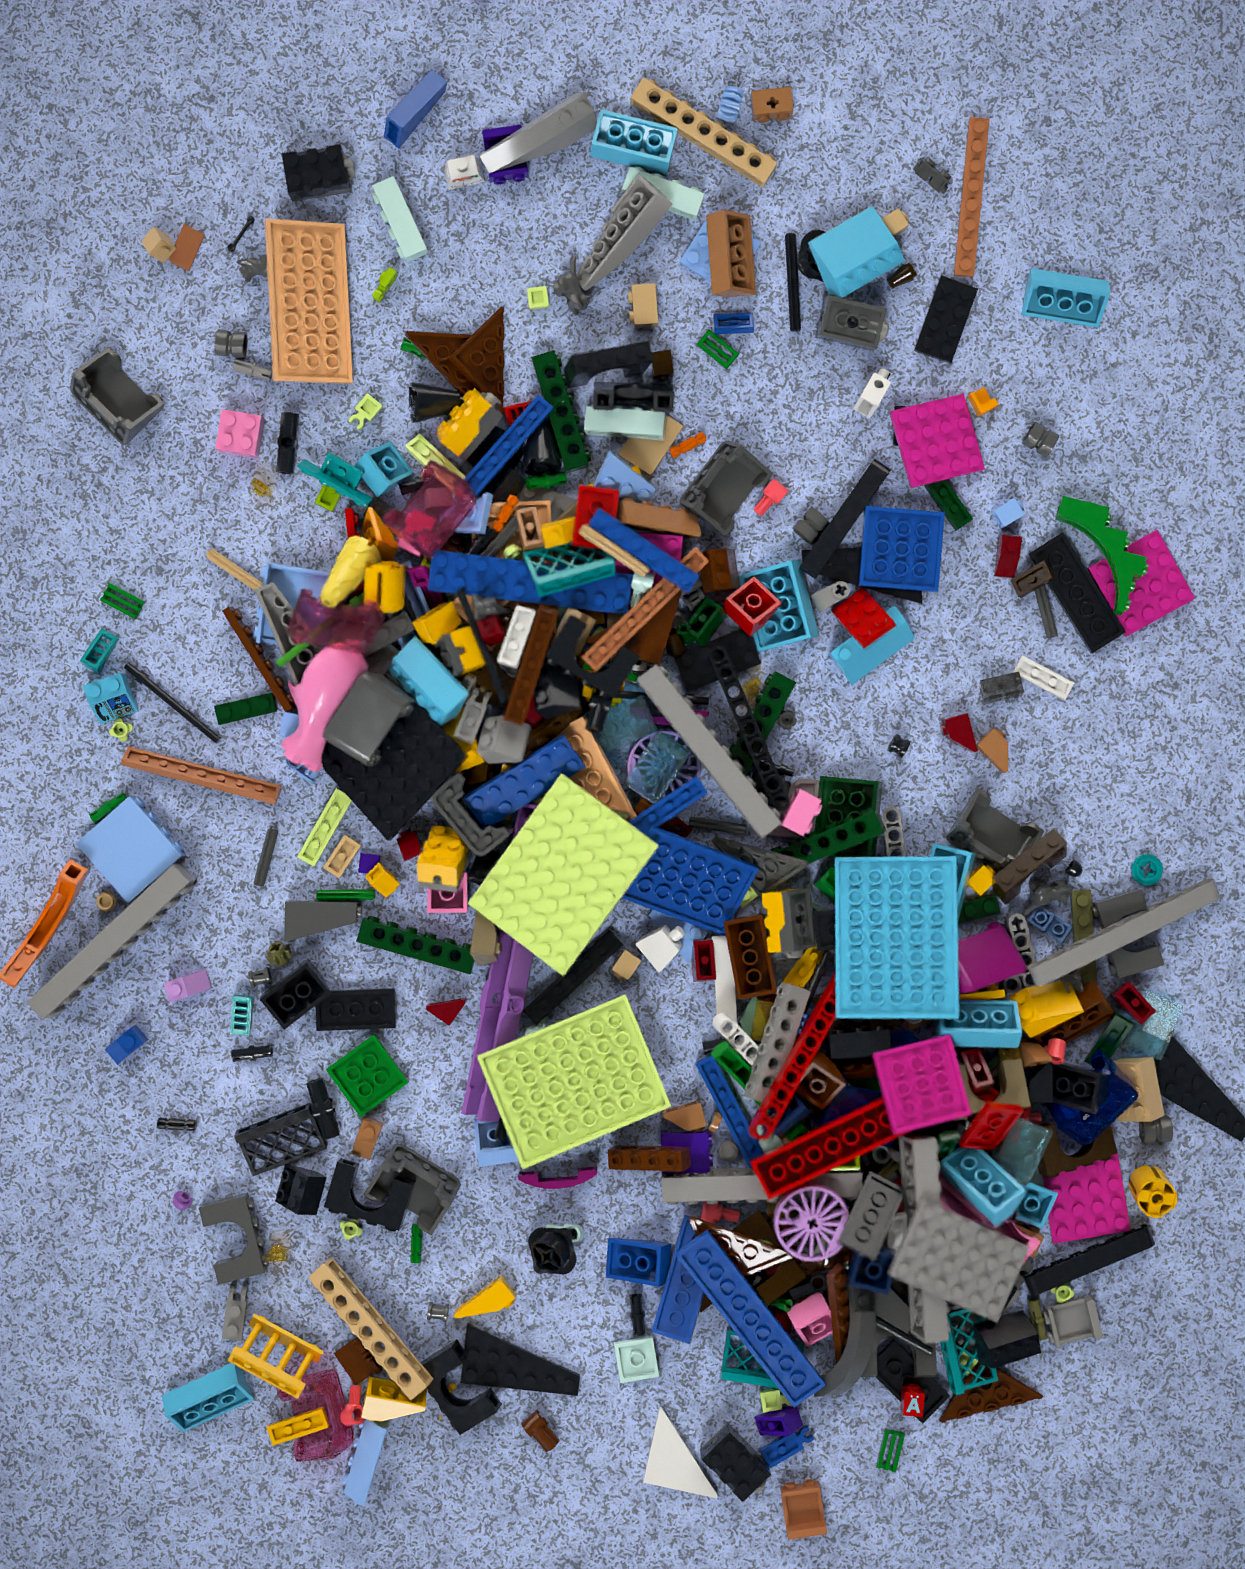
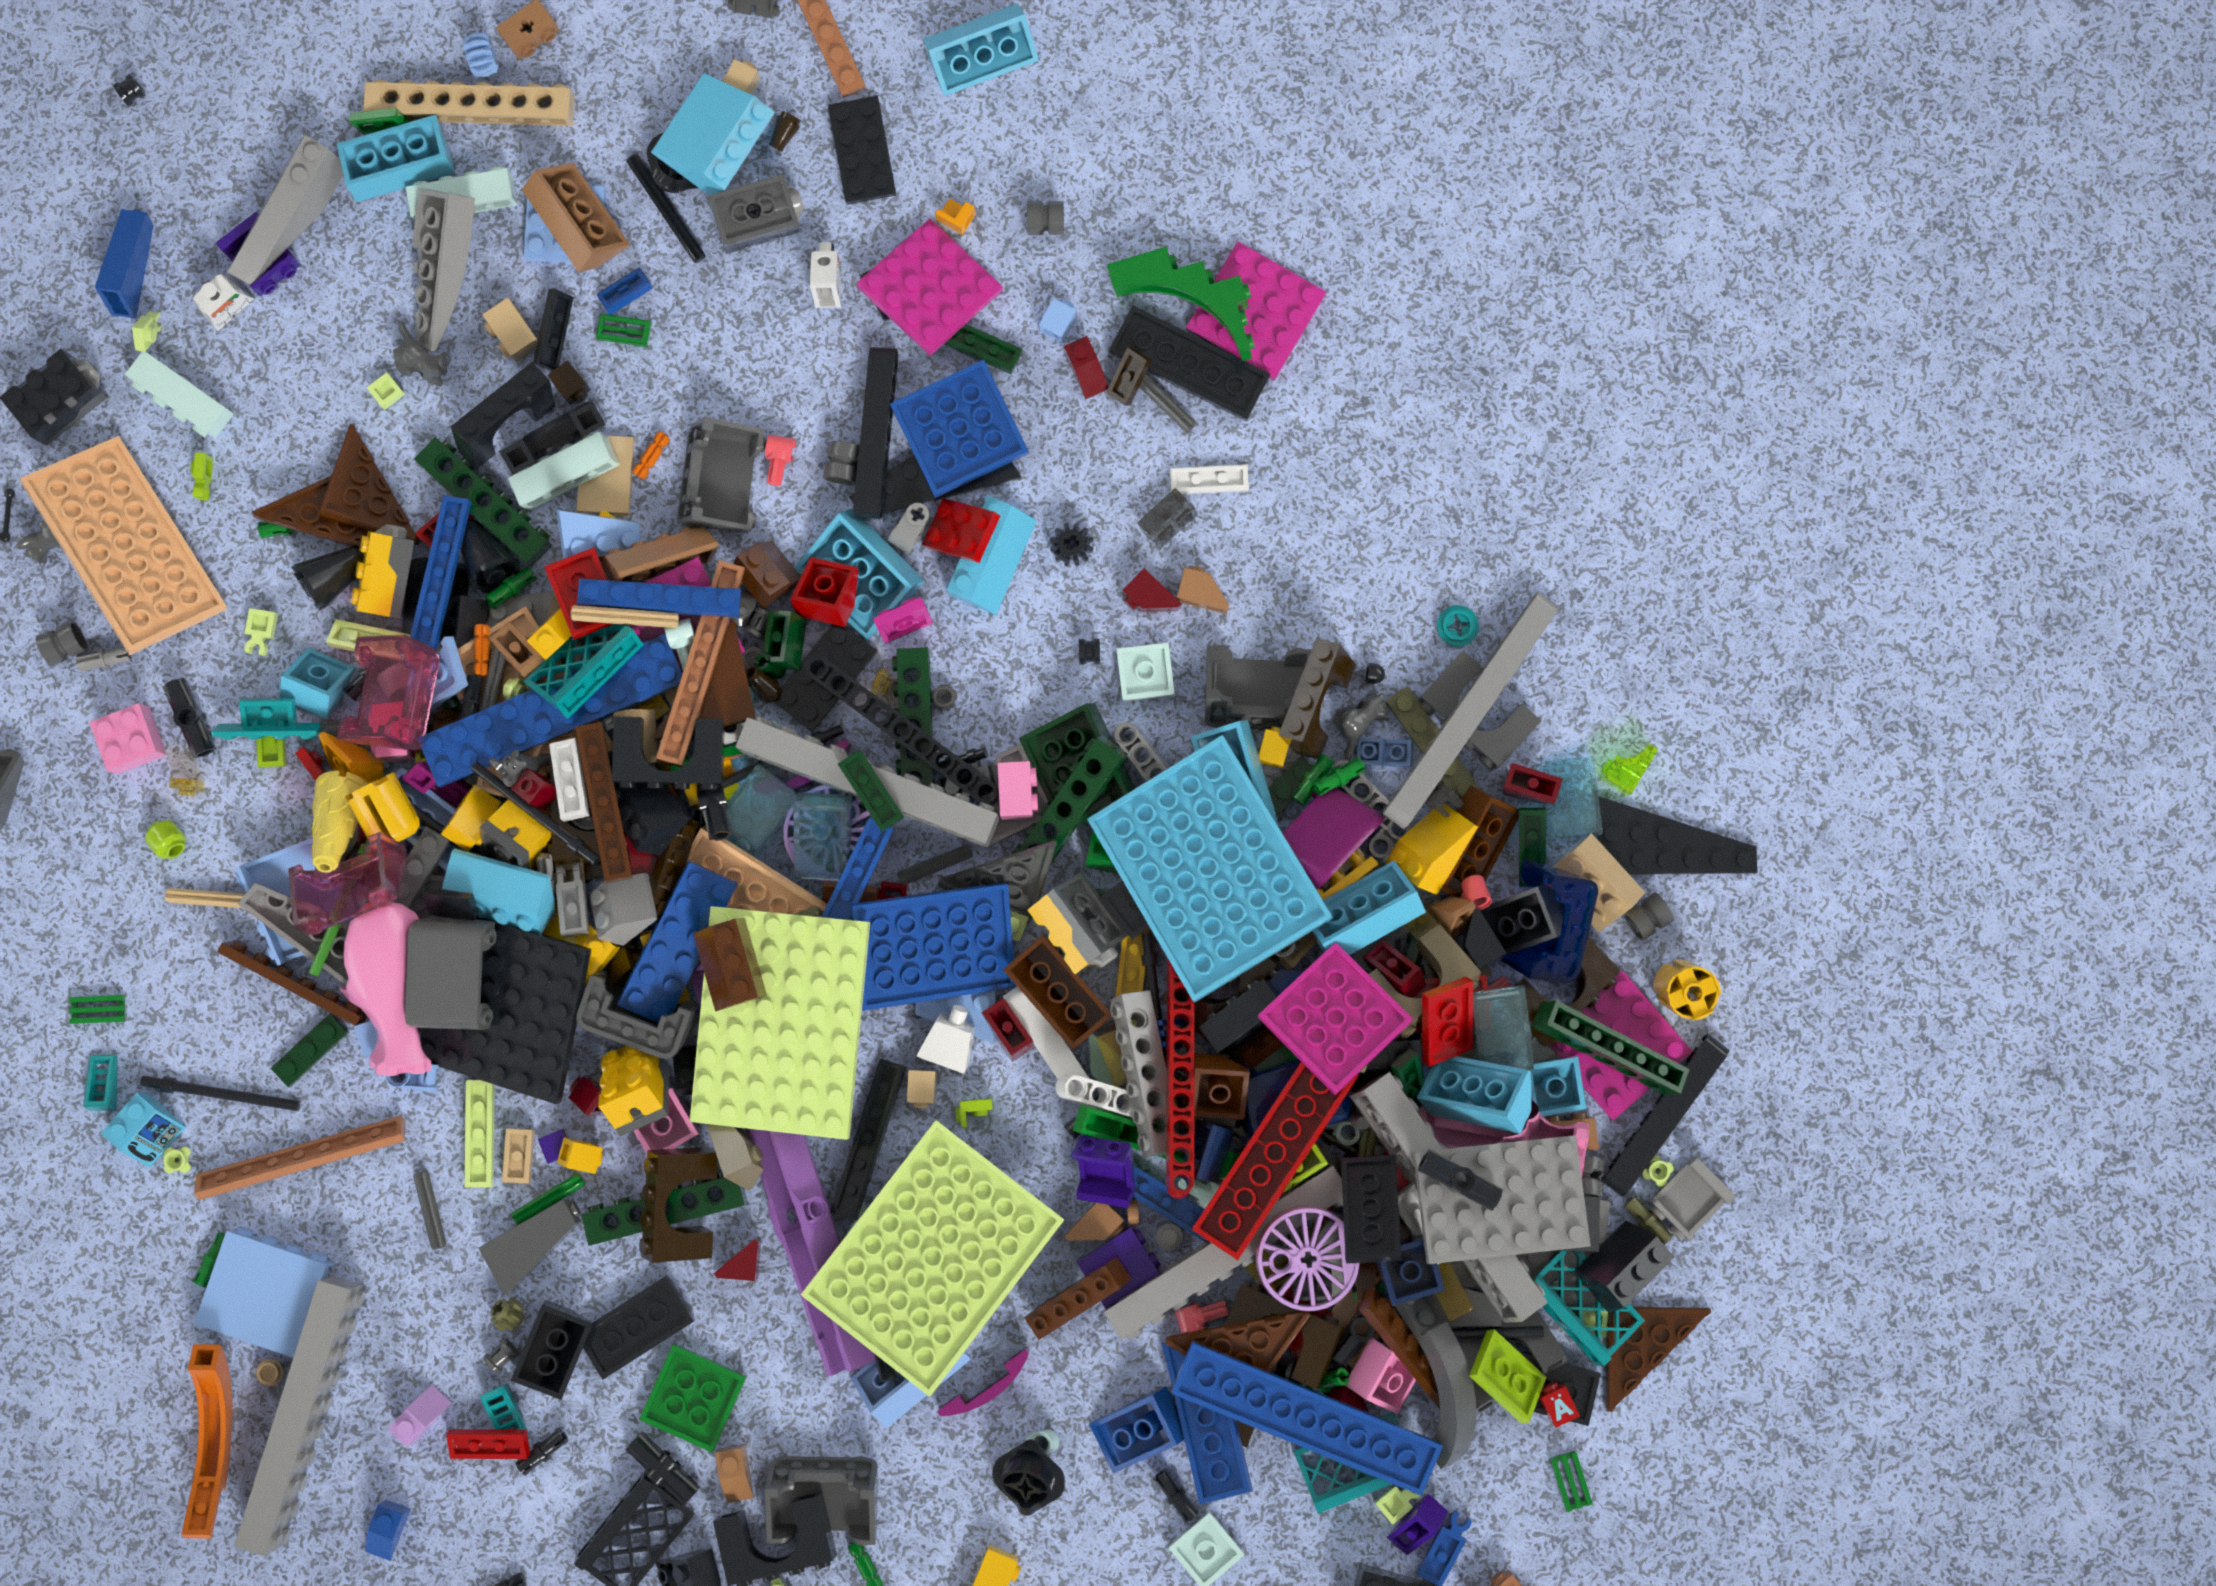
camera: 30 degrees left, 5 degrees down
(221, 1029) = (488, 1444): none -> red plate
(228, 515) = (165, 839): none -> lime head
(393, 672) = (450, 904): none -> black tile
(402, 163) = (146, 330): none -> yellowish green plate
(432, 926) = (664, 1172): none -> dark brown arch
(552, 820) = (729, 964): none -> reddish brown slope
(635, 108) = (377, 120): none -> green tile
(654, 998) = (978, 1107): none -> lime bracket
(671, 322) = (553, 329): none -> black tile
(709, 761) = (871, 790): none -> dark green plate
(713, 1089) = (1105, 1171): none -> dark purple panel
(791, 655) = (902, 620): none -> dark pink plate
(888, 1303) = (1454, 1298): none -> clear yellow tile
(892, 1366) = (1507, 1376): none -> lime plate
(927, 780) = (1145, 672): none -> light aqua plate
(930, 675) = (1076, 552): none -> black gear
(936, 1225) = (1475, 1187): none -> black piece
(994, 915) = (1318, 770): none -> green pin
(1012, 924) = (1338, 776): none -> green pin
(1082, 1201) = (1610, 1047): none -> dark green brick
(1198, 1030) = (1626, 773): none -> clear neon green arch

